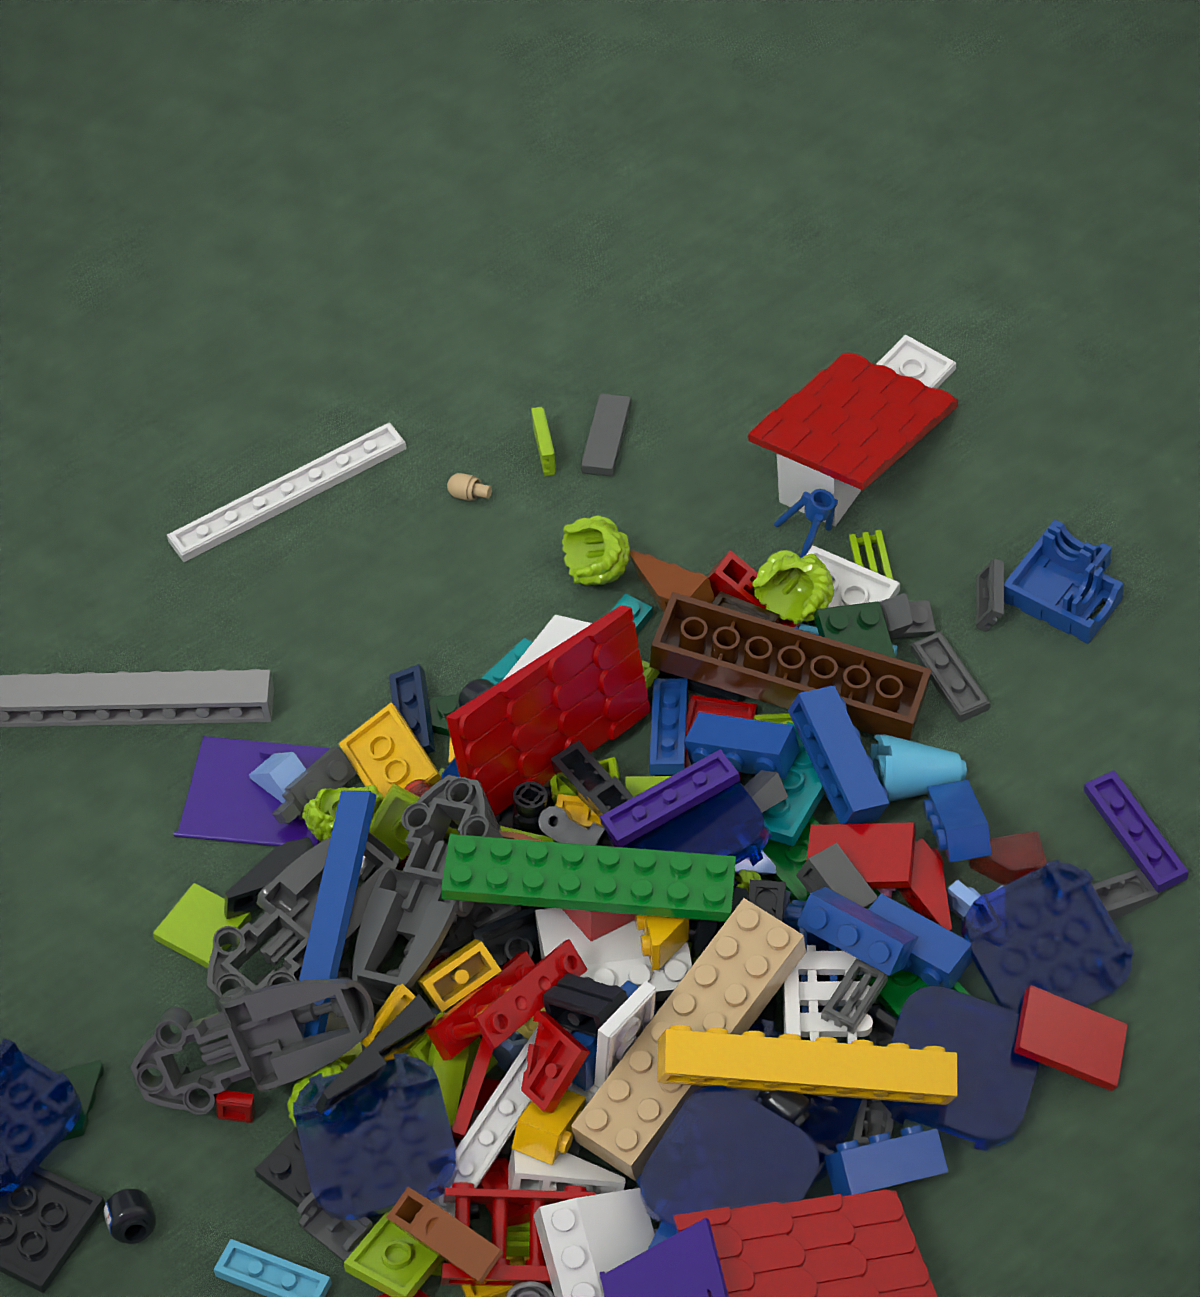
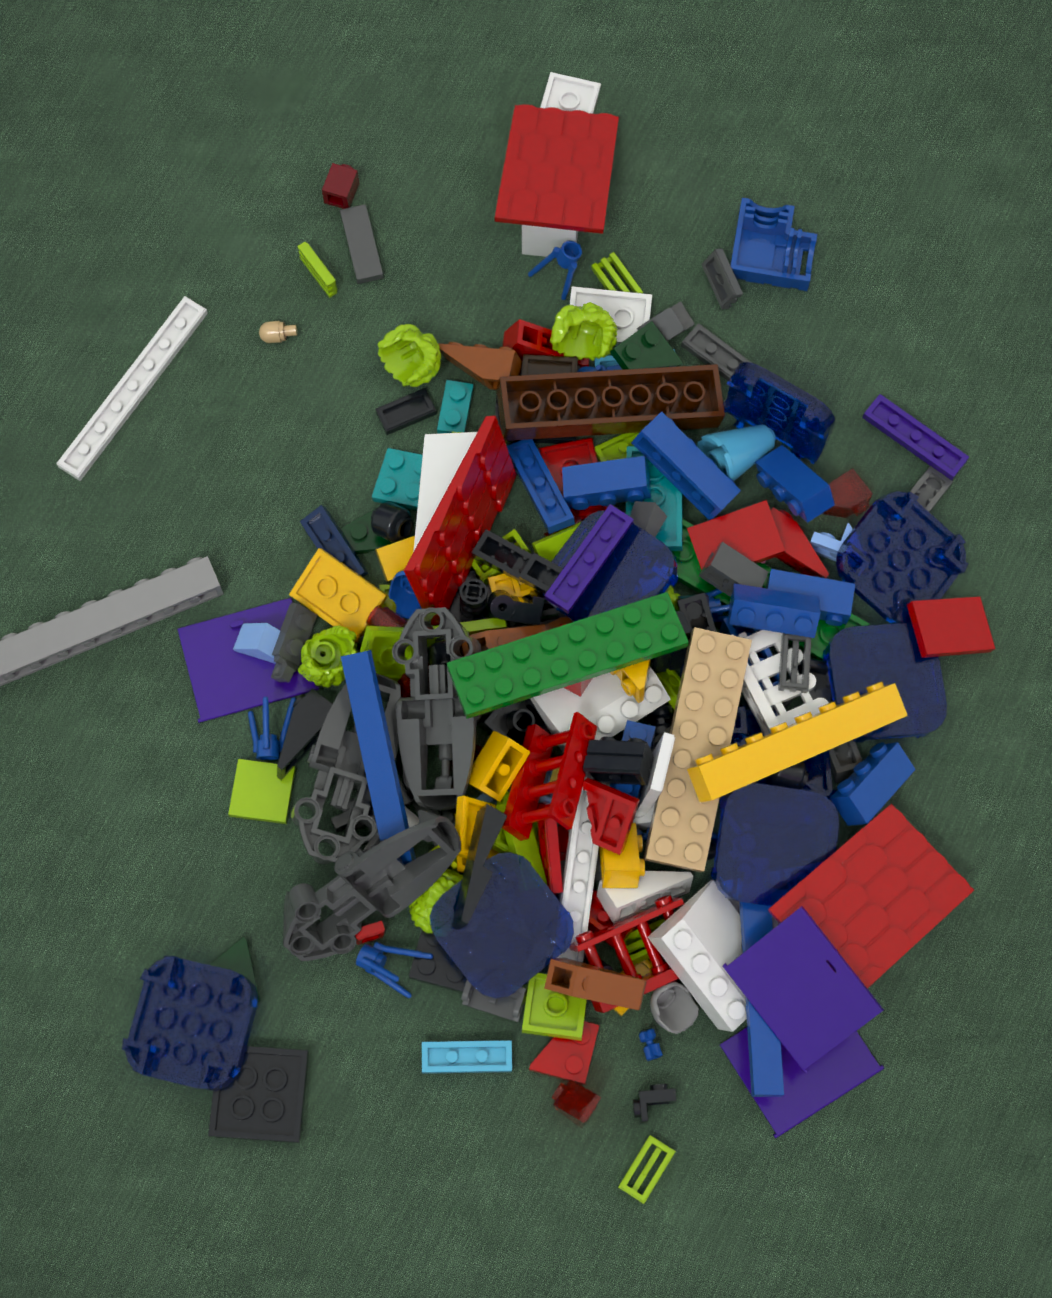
camera: 30 degrees left, 20 degrees up
(129, 1216) = (335, 1056): black head -> none
(226, 1137) = (373, 961): none -> blue plant
(230, 872) = (268, 746): none -> blue plant
(575, 606) = (405, 411): none -> black tile
(612, 370) = (340, 186): none -> dark red brick
(972, 724) = (792, 414): none -> clear blue tile

